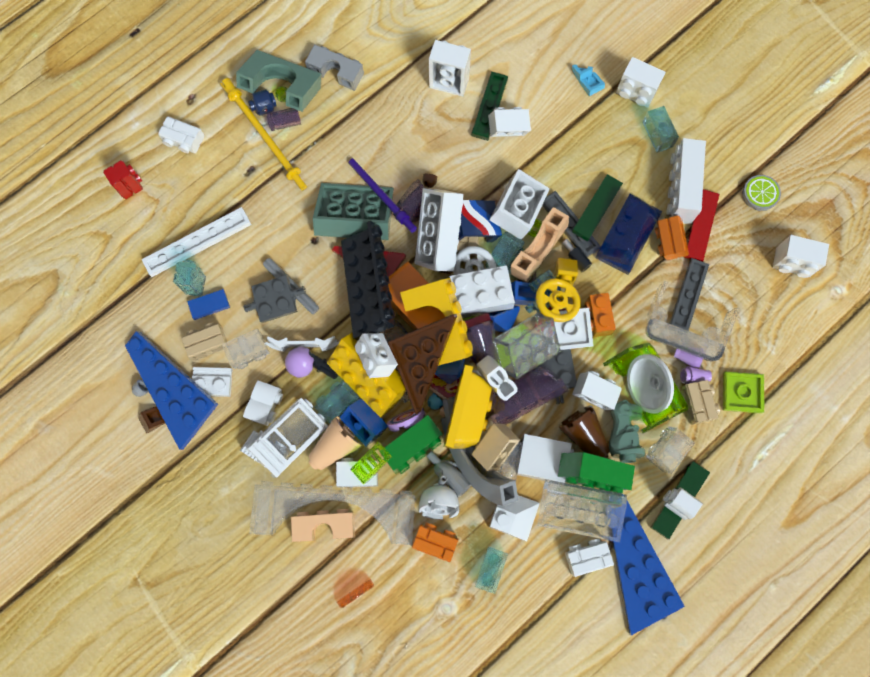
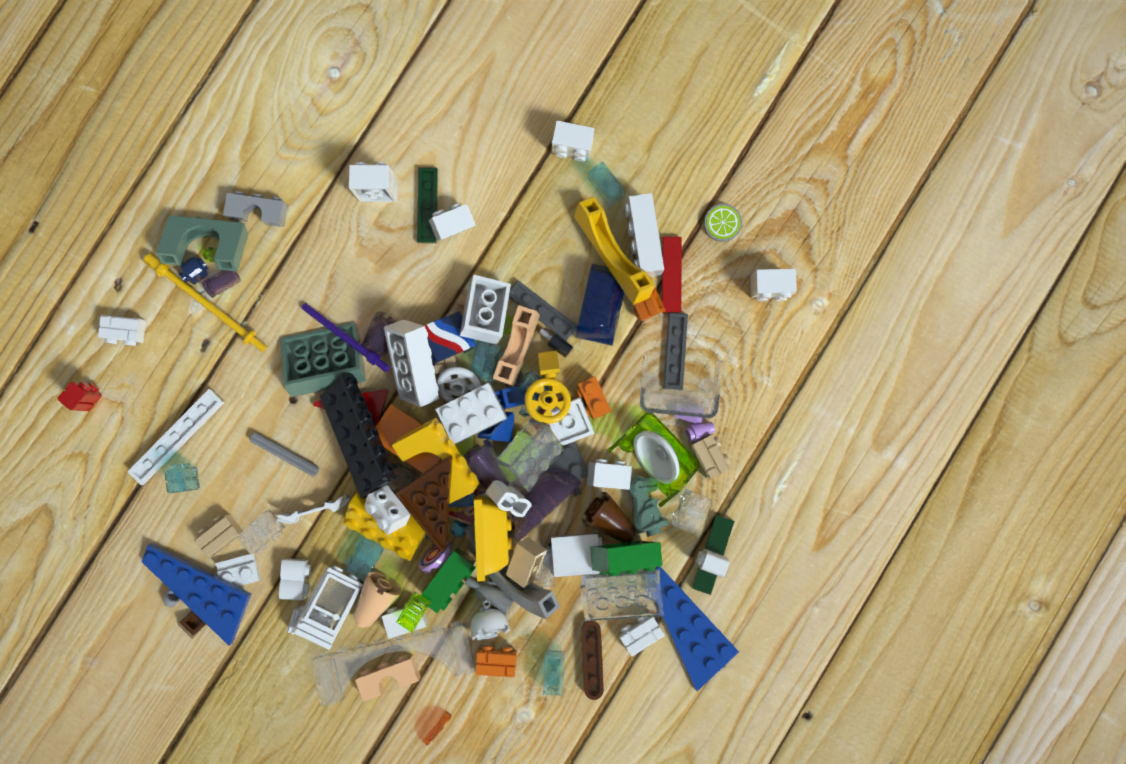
camera: 15 degrees left, 10 degrees up
(208, 304) = (209, 496): blue tile -> none
(274, 299) = (272, 473): dark grey plate -> none
(299, 362) = (316, 530): lavender hair -> none
(322, 366) = (335, 524): black axle -> none
(363, 422) = (396, 570): blue brick -> none
(429, 180) = (389, 305): reddish brown hinge -> none
(477, 320) = (473, 445): dark red tile -> none
(515, 518) = (567, 618): white slope -> none
(532, 570) = (592, 660): none -> reddish brown plate
(588, 79) = (520, 147): medium azure slope -> none
(597, 207) = (563, 286): dark green tile -> none
(641, 156) = (631, 278): none -> yellow arch
(743, 392) = (749, 433): lime tile -> none

